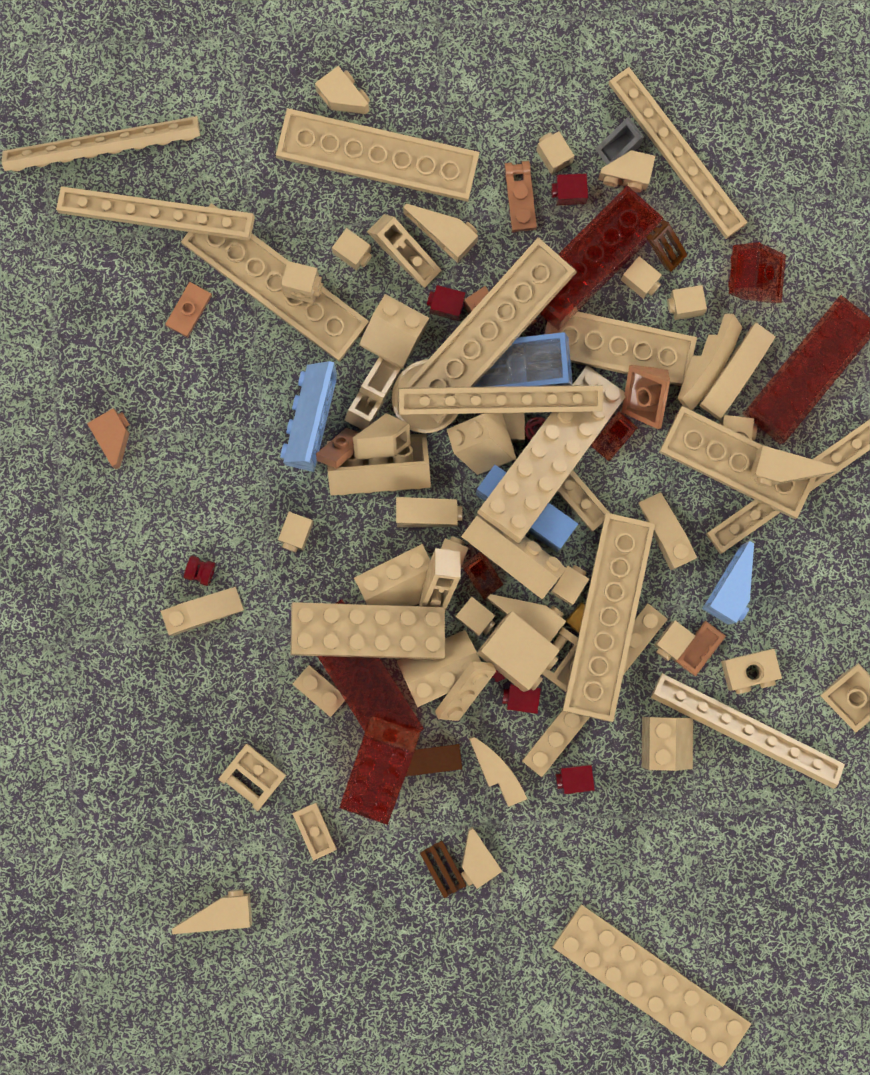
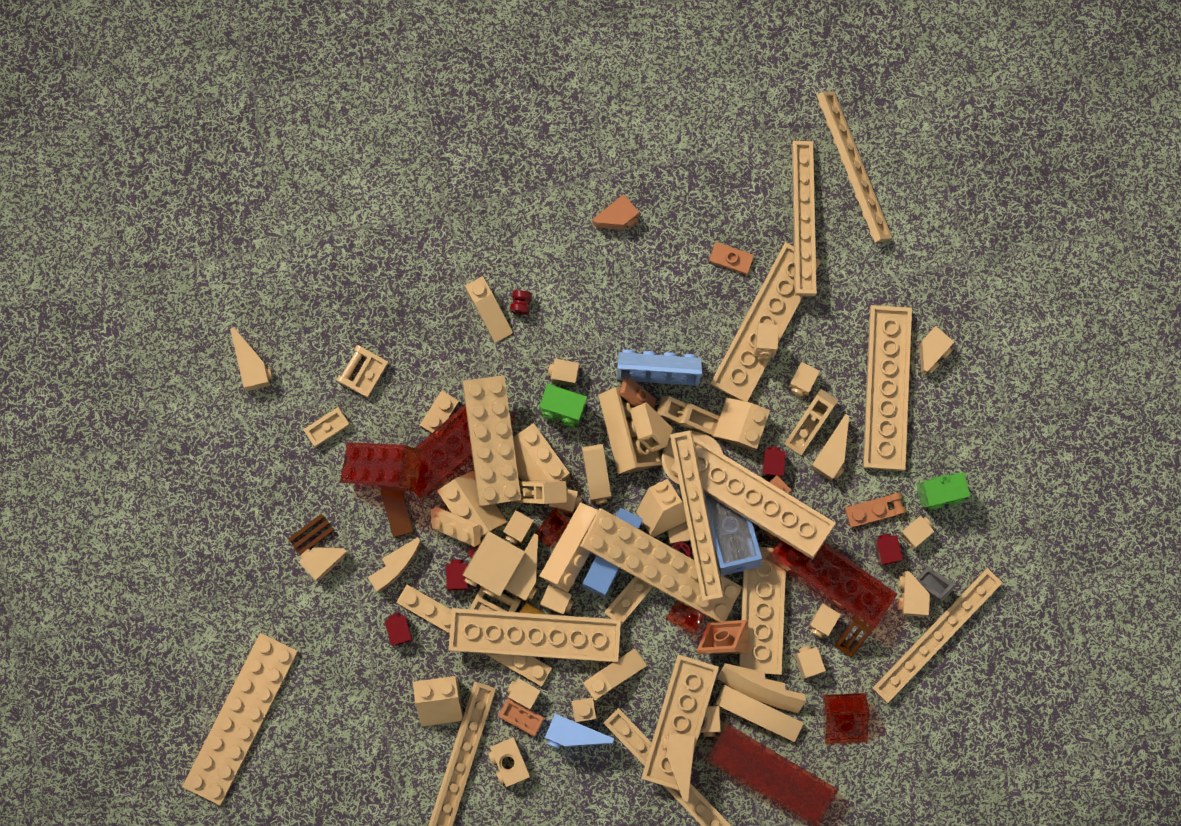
camera: 85 degrees right, 5 degrees down
(338, 539) = (562, 406): none -> bright green brick
(513, 111) = (943, 489): none -> bright green brick
(704, 573) = (584, 710): none -> tan brick

